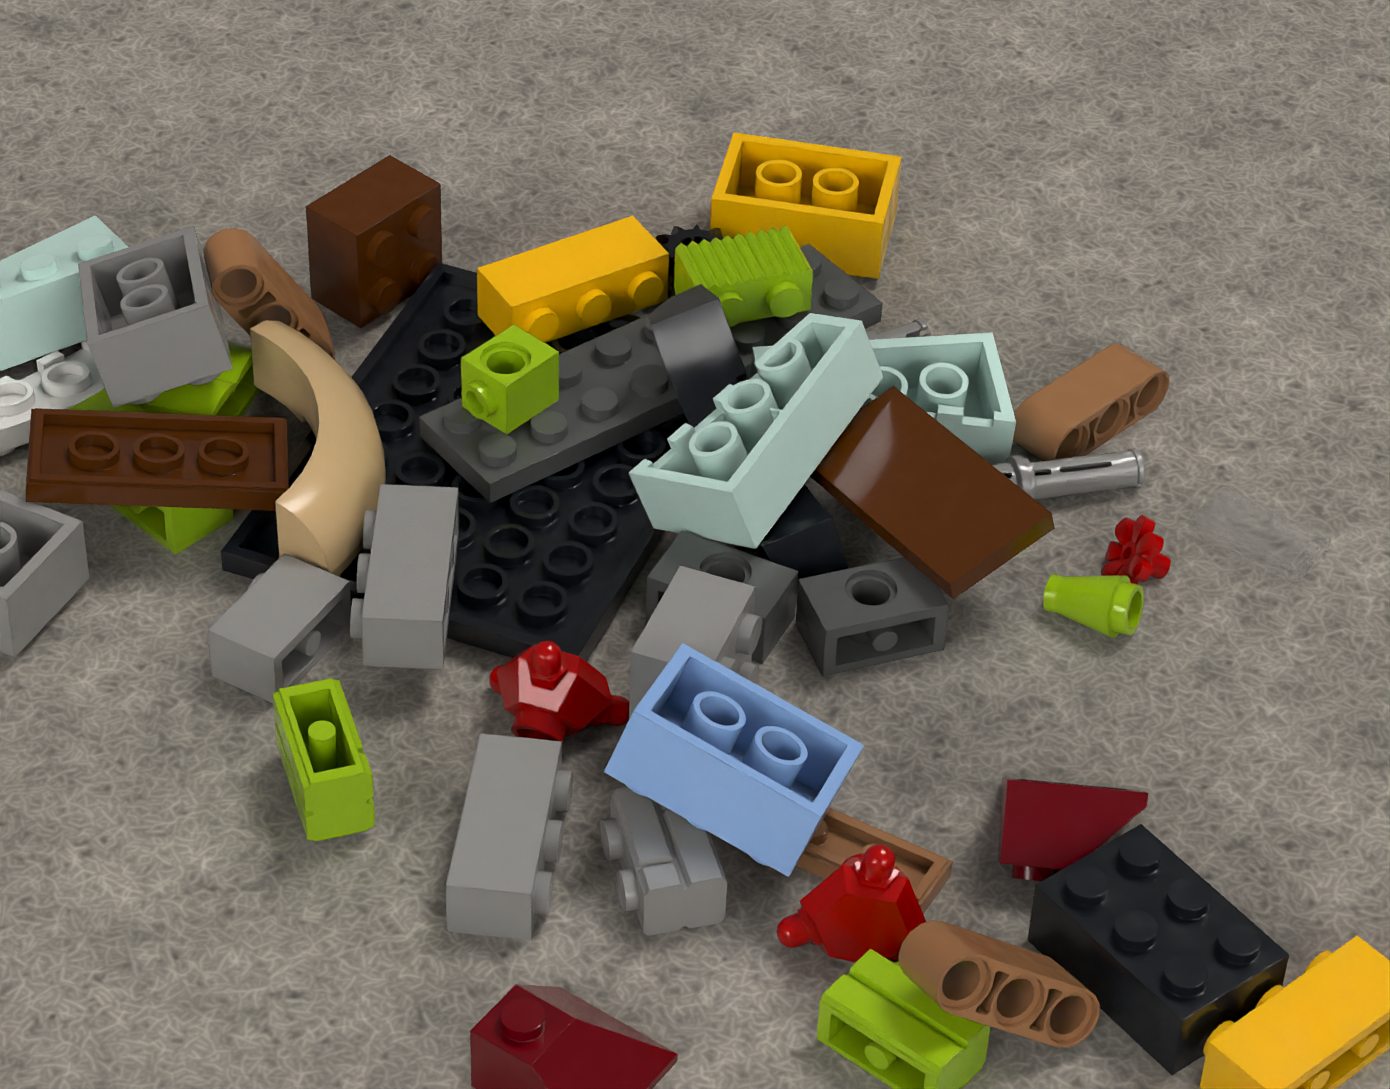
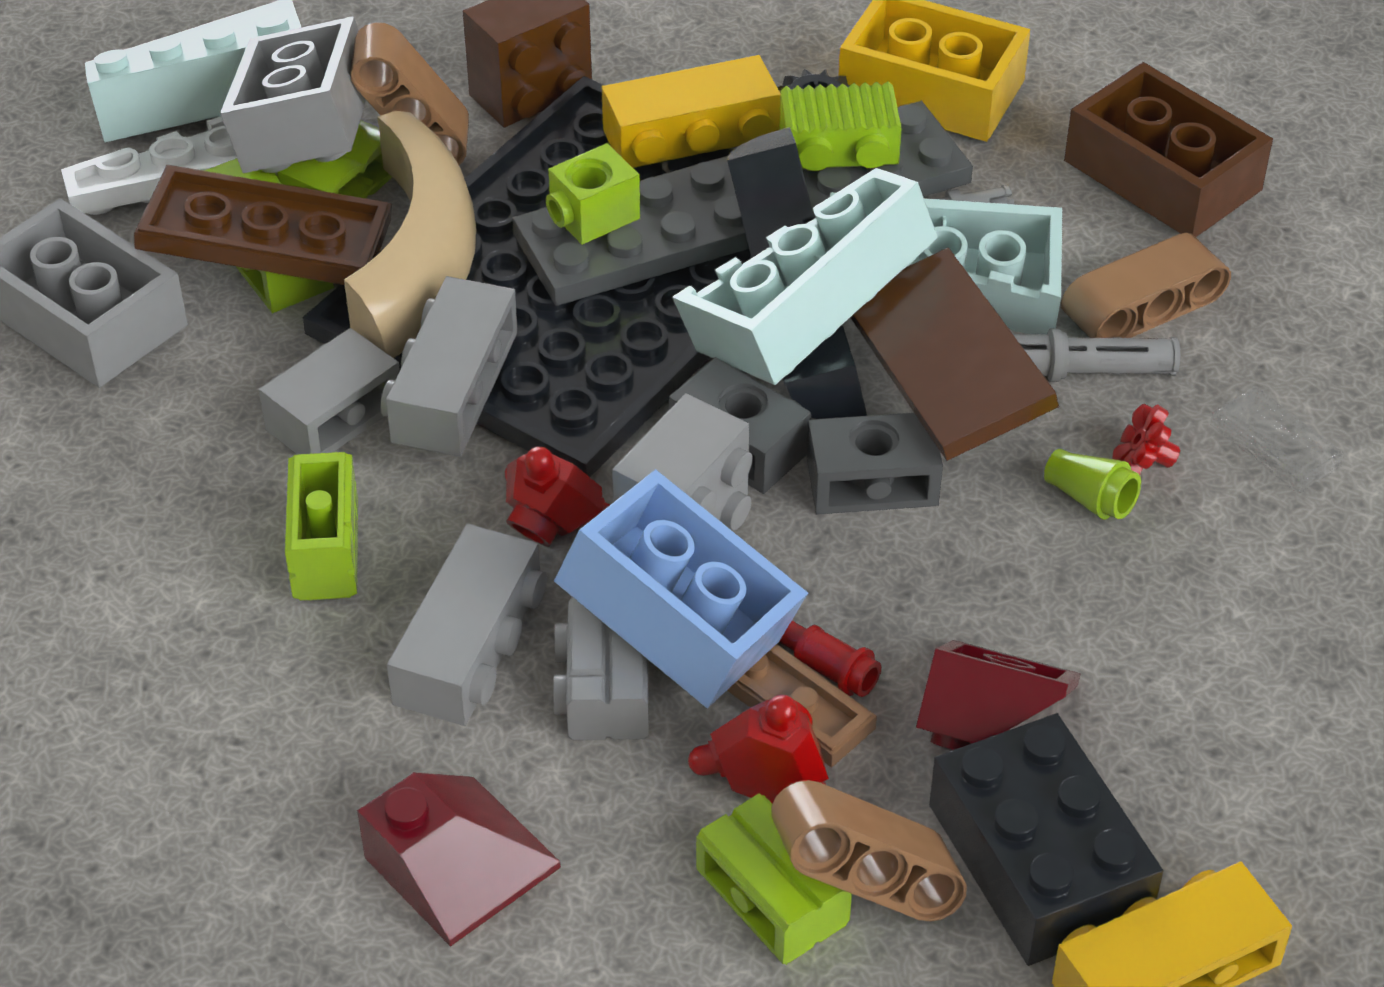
camera: 15 degrees right, 5 degrees up
(891, 812) = (850, 668): none -> red pin
(1070, 262) = (1167, 149): none -> reddish brown brick

